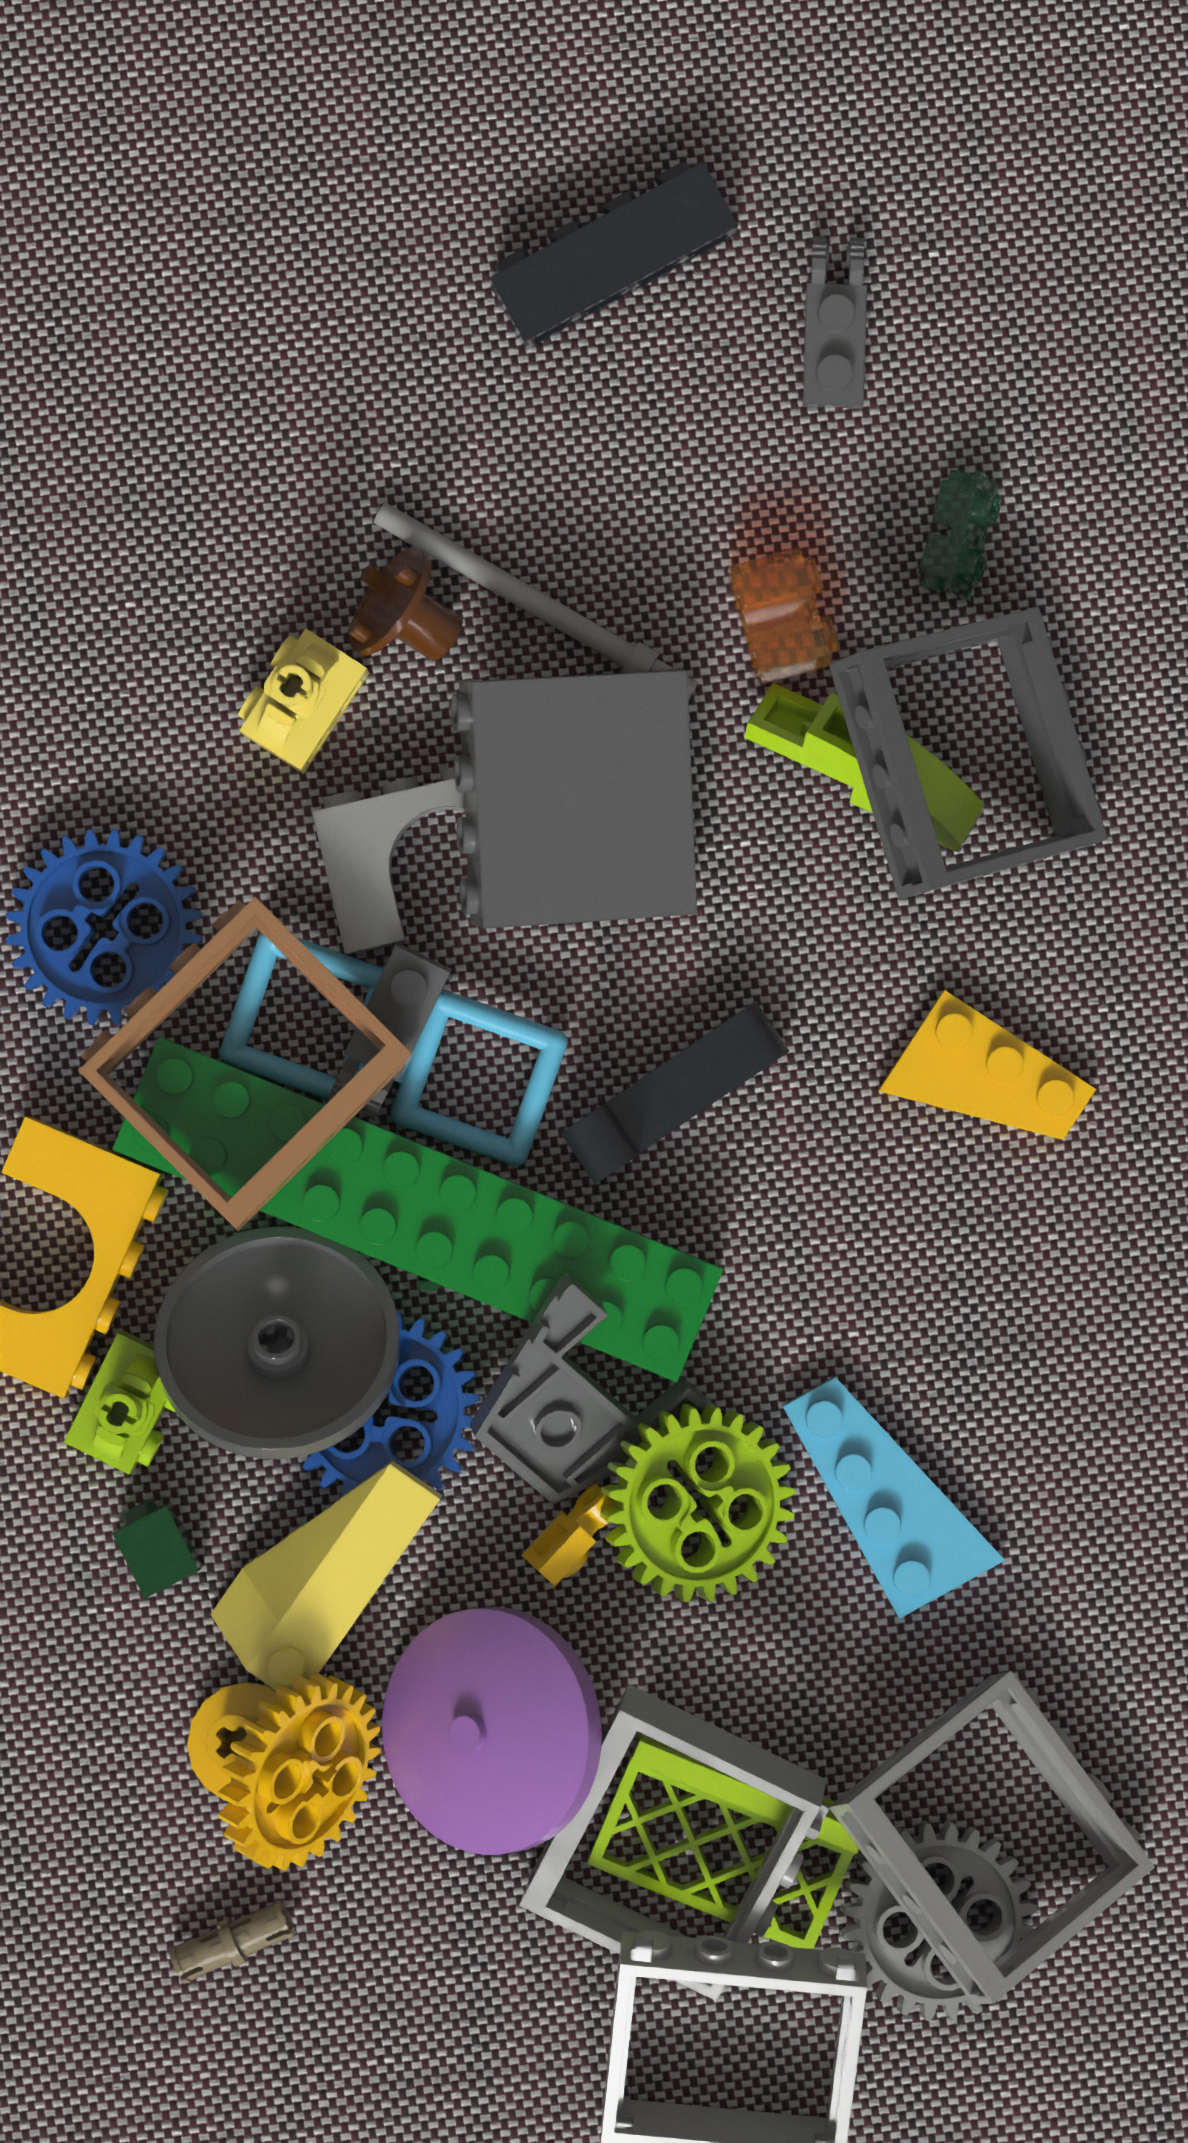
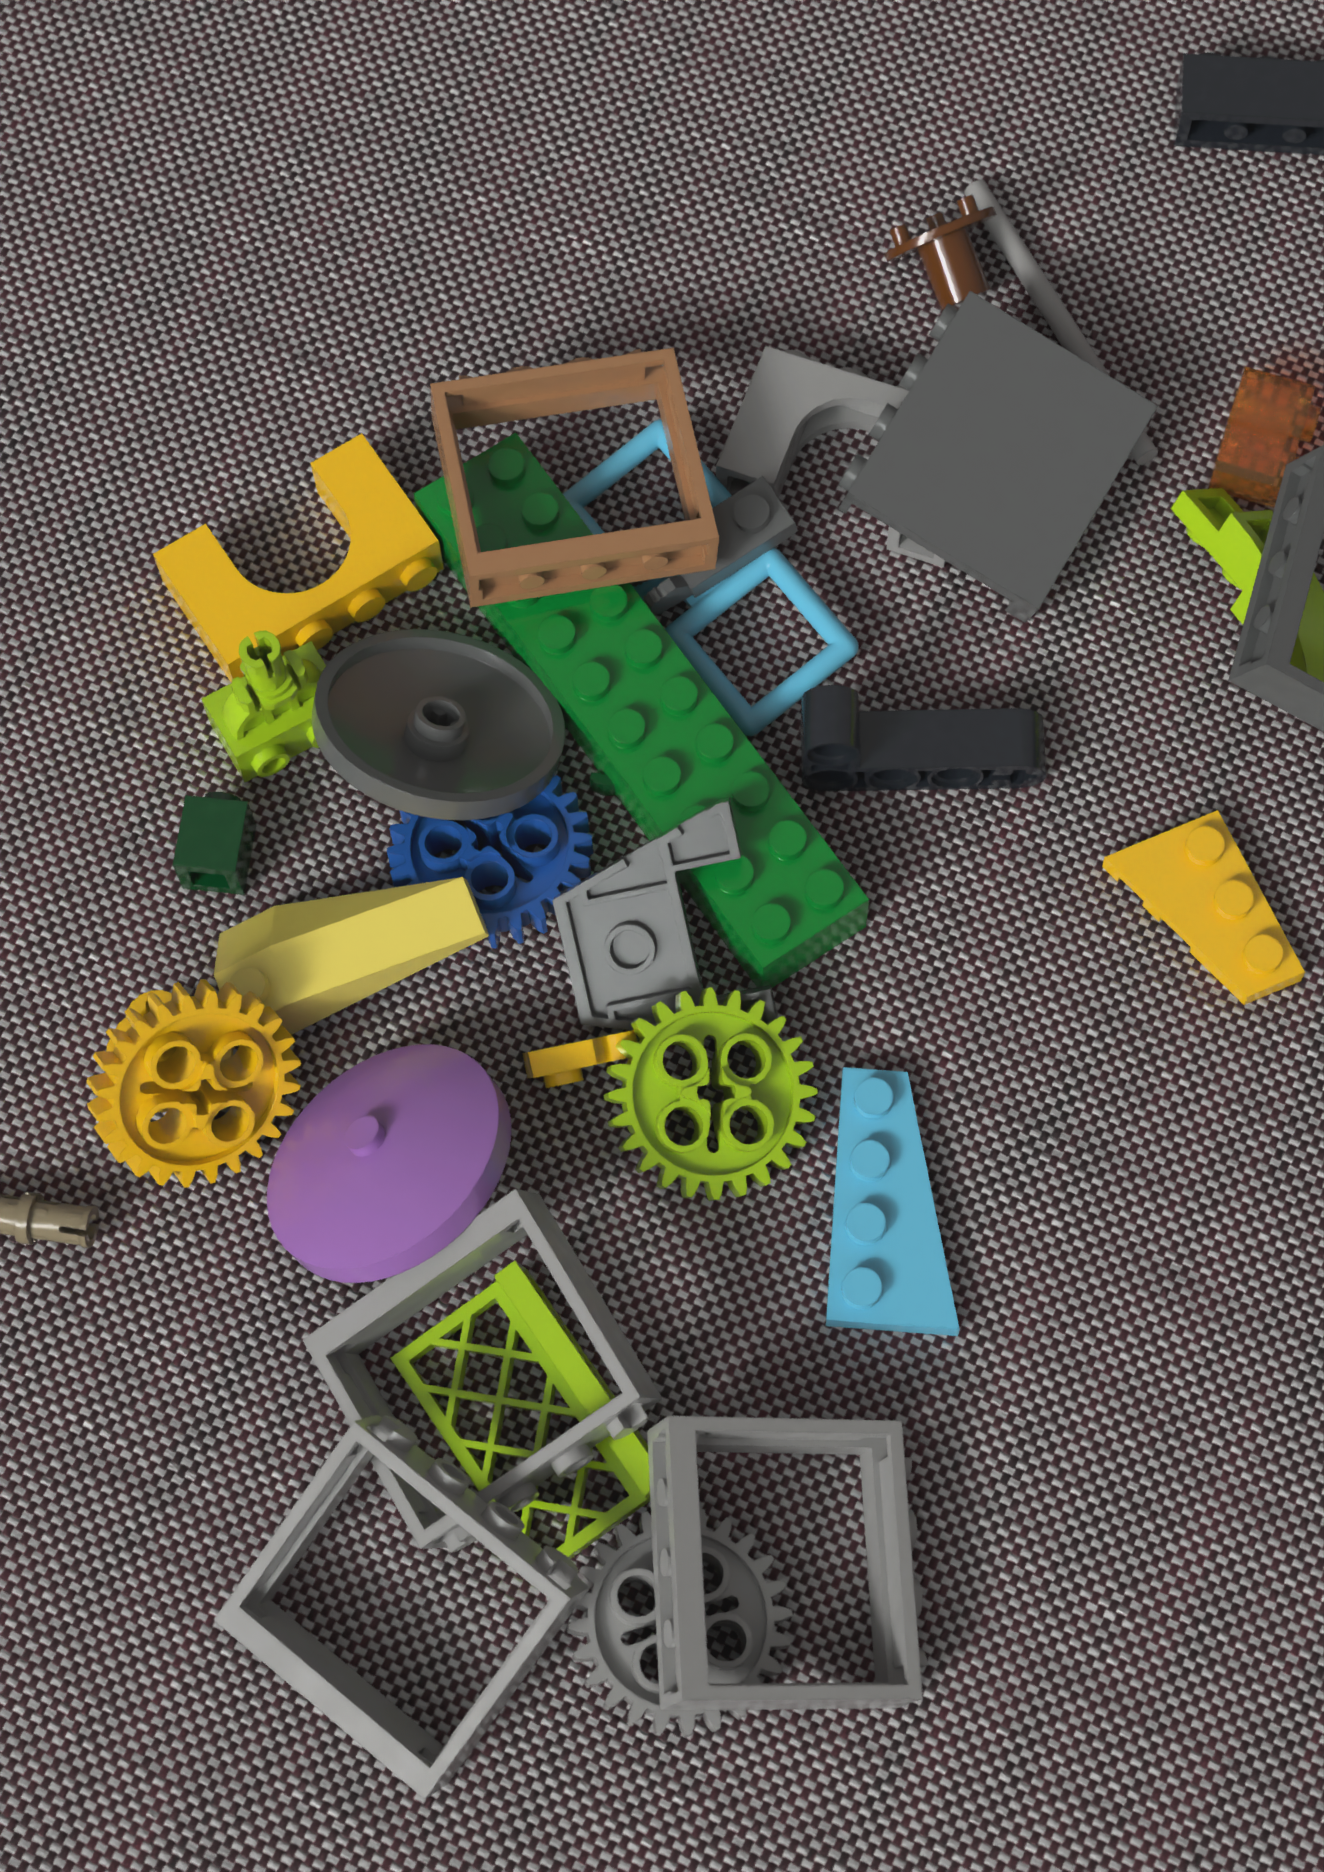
camera: 40 degrees right, 20 degrees down
(60, 893) = (531, 340): blue gear -> none
(301, 699) = (819, 267): light yellow brick -> none

